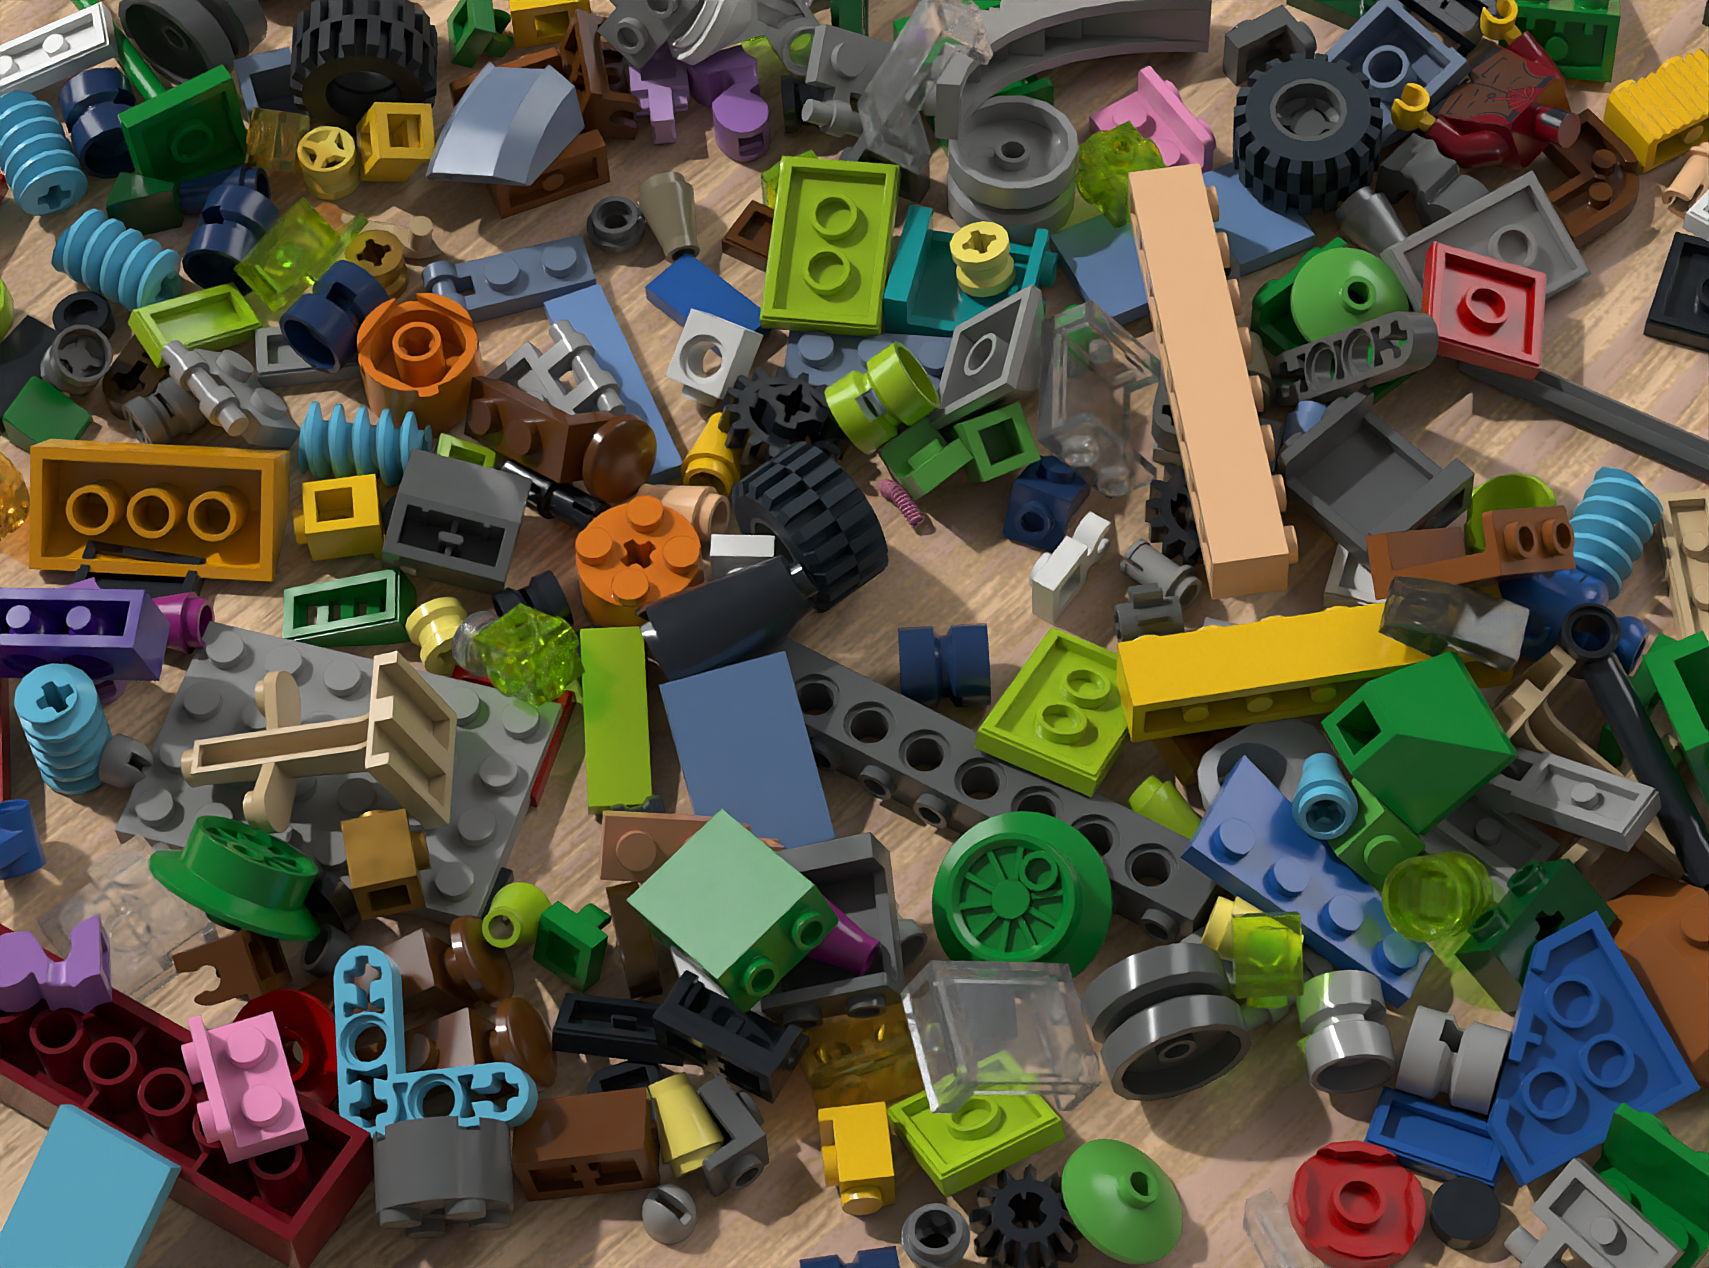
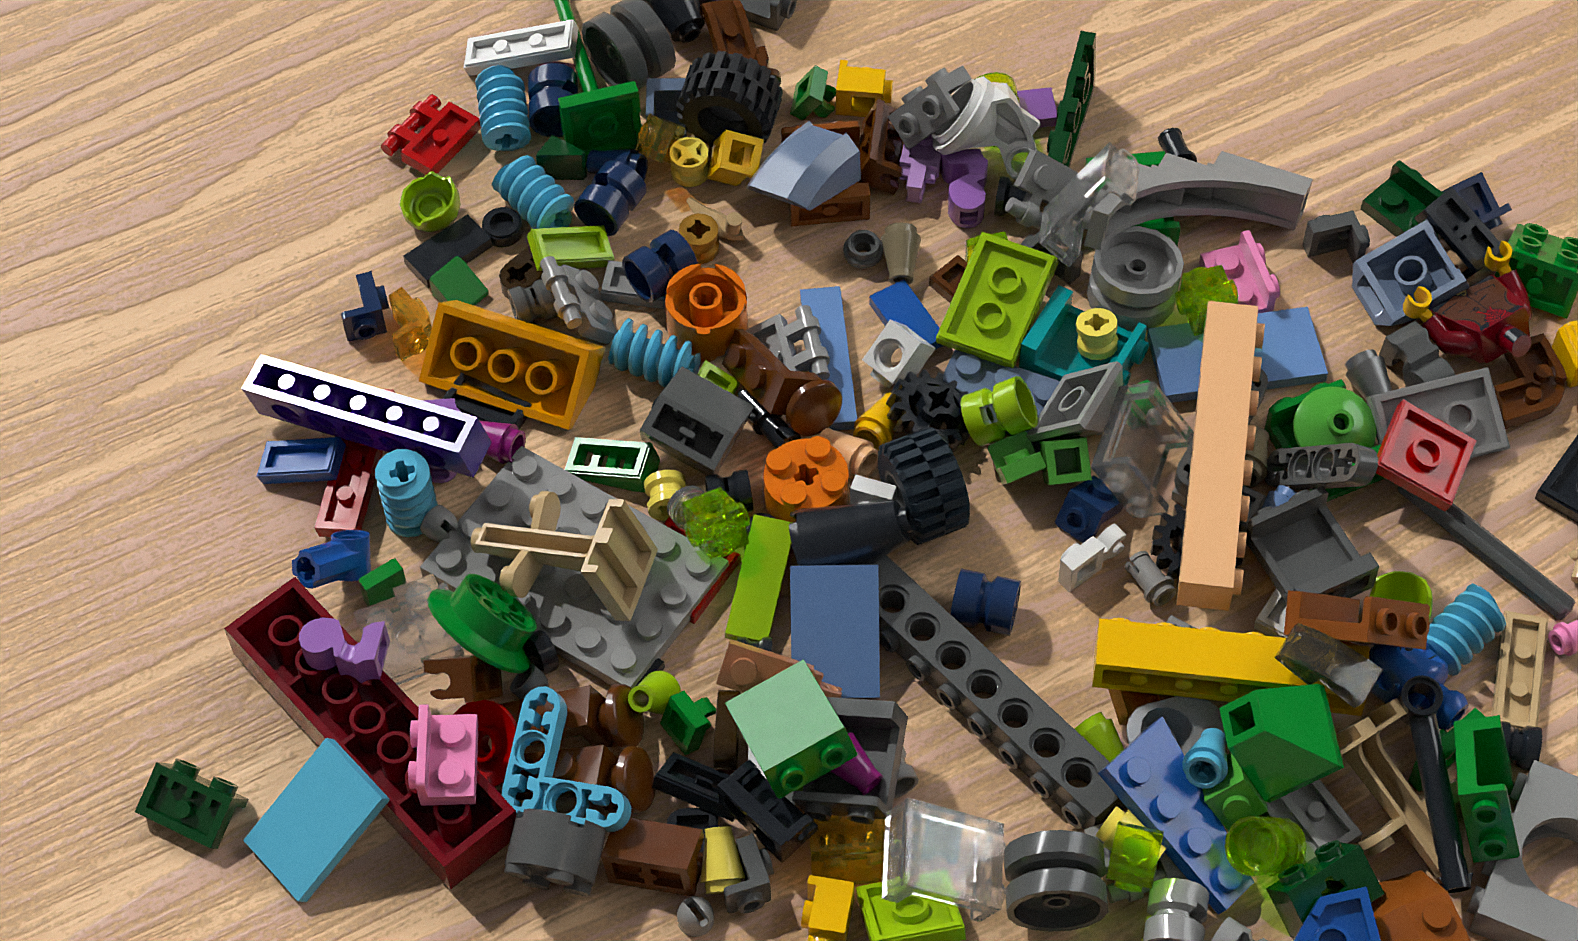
camera: 15 degrees right, 0 degrees up
(65, 866) = (378, 584): none -> green tile
(81, 349) = (492, 246): dark grey wheel -> none
(295, 253) = (647, 217): clear neon green panel -> none
(341, 518) = (623, 399): yellow brick -> none
(385, 862) = (580, 635): pearl gold brick -> none
(513, 279) = (784, 268): sand blue plate -> none
(903, 502) = (994, 481): bright pink leg -> none
(1023, 894) = (989, 769): green wheel -> none
(1060, 714) = (1051, 655): lime tile -> none
(1147, 614) = (1132, 603): dark grey gear -> none
(1307, 133) = (1341, 303): black wheel -> none
(1573, 798) = (1377, 804): light grey hinge -> none

